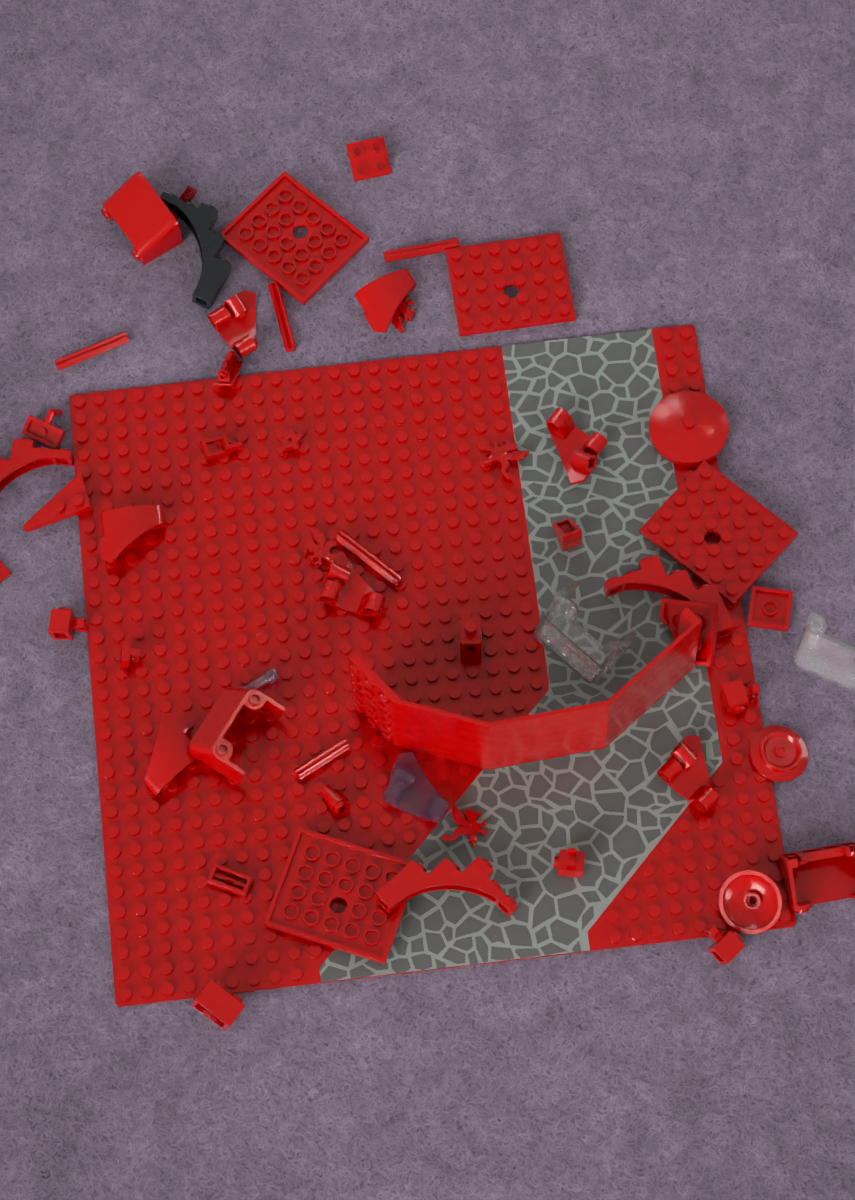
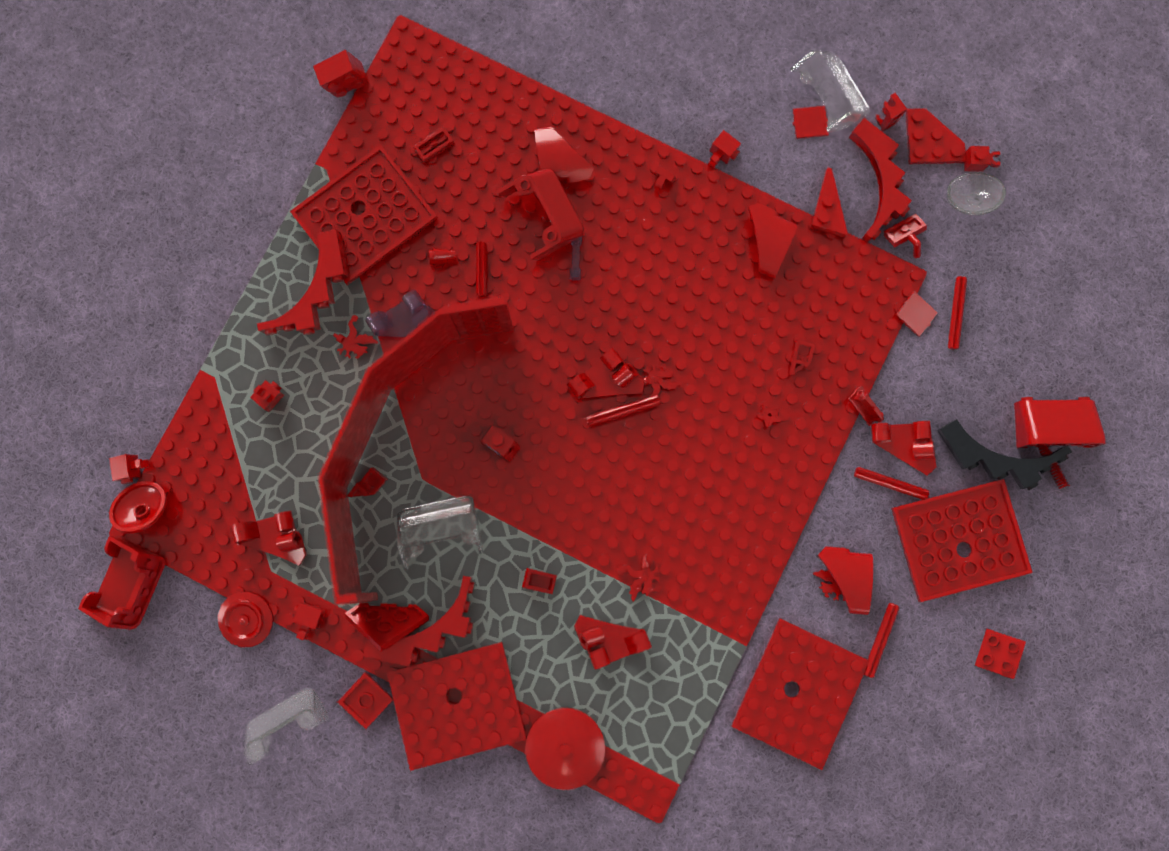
camera: 120 degrees right, 15 degrees up
(115, 381) = (916, 313): none -> piece

